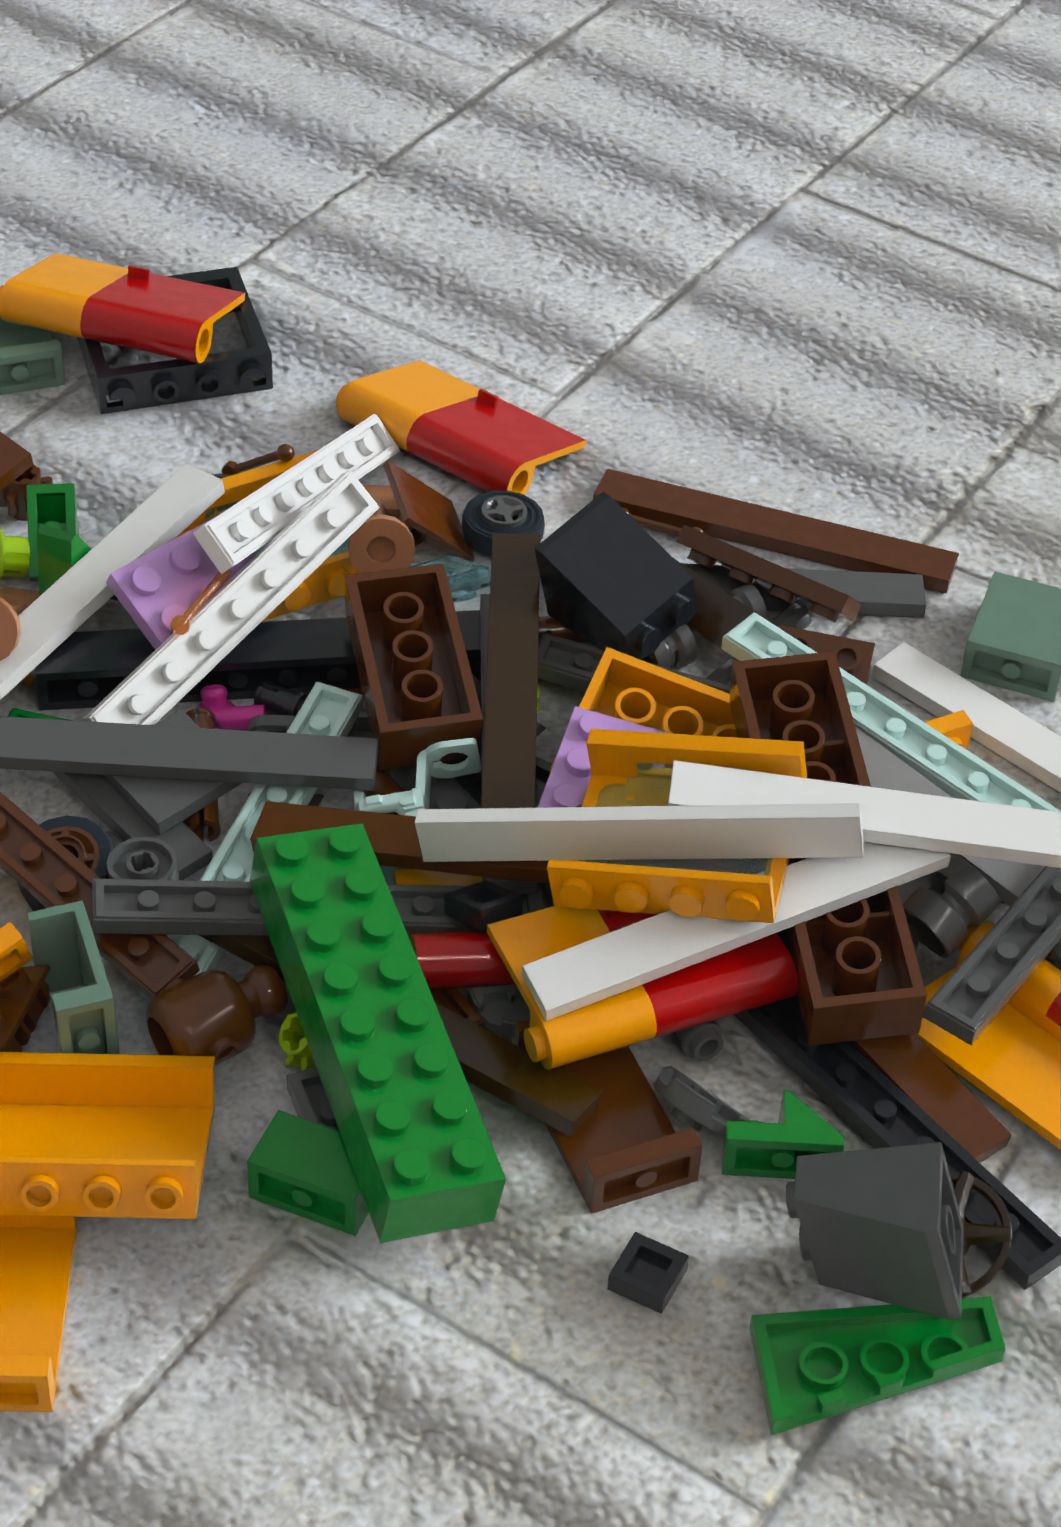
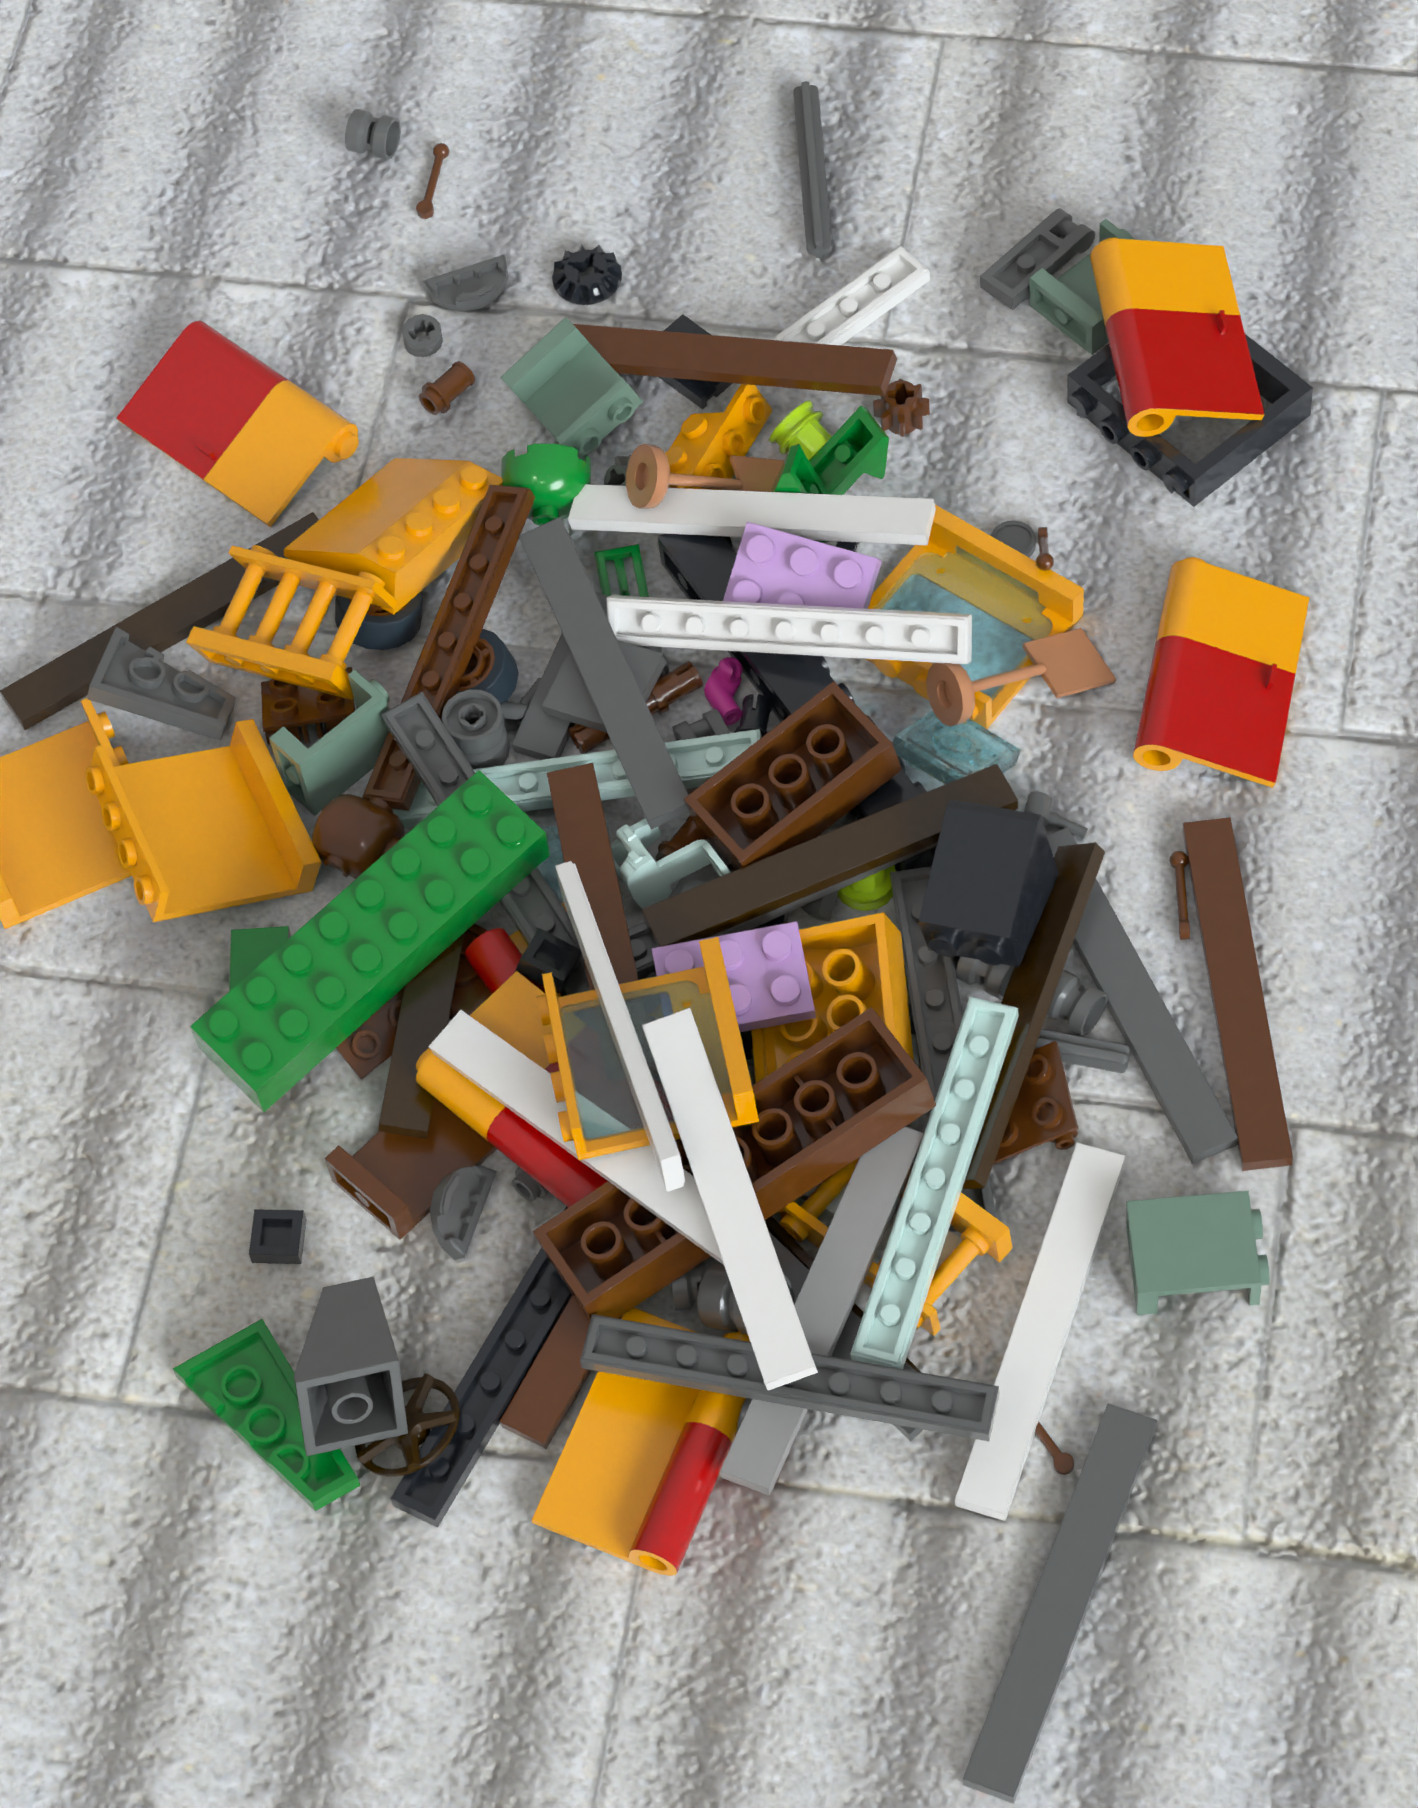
camera: 75 degrees right, 15 degrees up
(181, 623) = (724, 600): clear orange hinge -> none
(272, 507) = (986, 597): white tile -> none
(427, 512) = (1055, 705): reddish brown piece -> none
(500, 513) = (1091, 753): black wheel -> none
(773, 1148) = (449, 1284): green slope -> none
(784, 583) = (1127, 1005): reddish brown plate -> none

